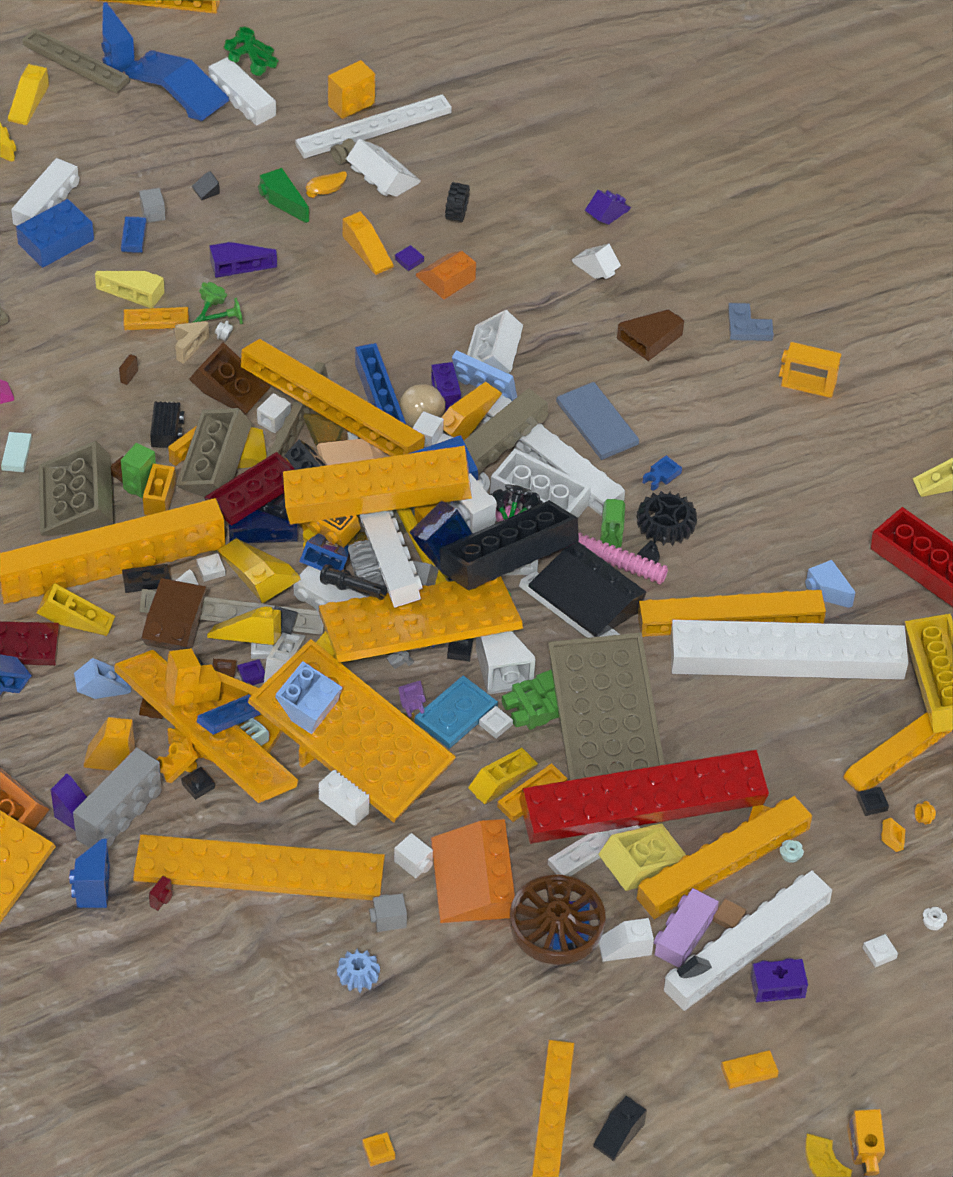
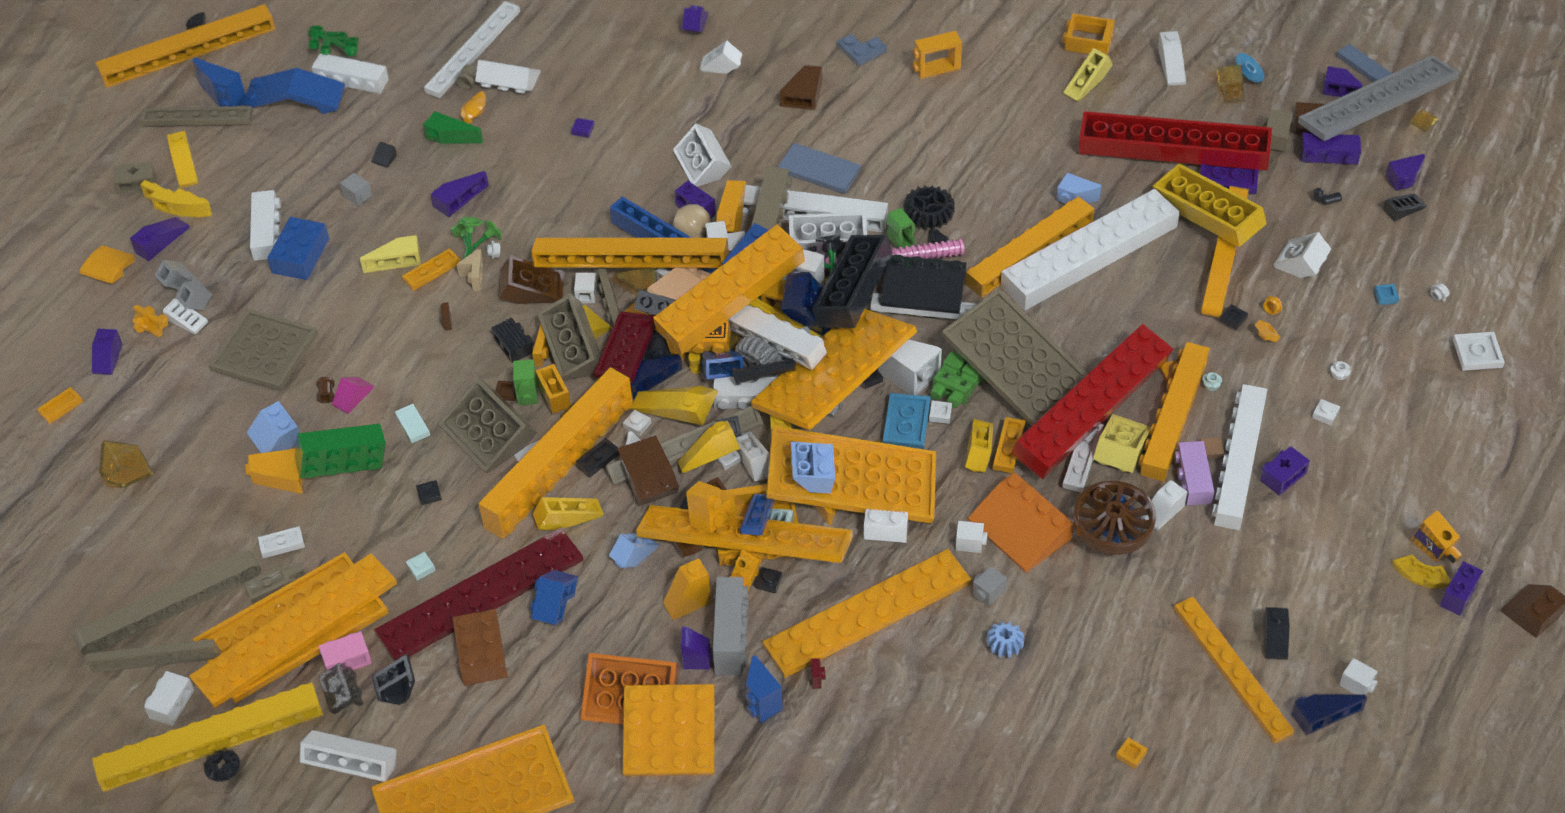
camera: 30 degrees left, 0 degrees up
(133, 234) = (359, 218): blue plate -> none
(251, 672) = (736, 479): dark purple tile -> none
(351, 89) = (436, 29): light orange brick -> none
(366, 243) = (542, 132): light orange slope -> none
(412, 697) = (868, 427): medium lavender plate -> none
(449, 274) = (622, 122): orange slope -> none
(457, 201) = (586, 69): black tyre -> none
(476, 373) = (715, 178): light blue plate -> none
(663, 470) = (897, 178): blue plate -> none
(694, 967) = (1231, 494): black tile -> none
(749, 1069) = (1317, 541): light orange plate -> none

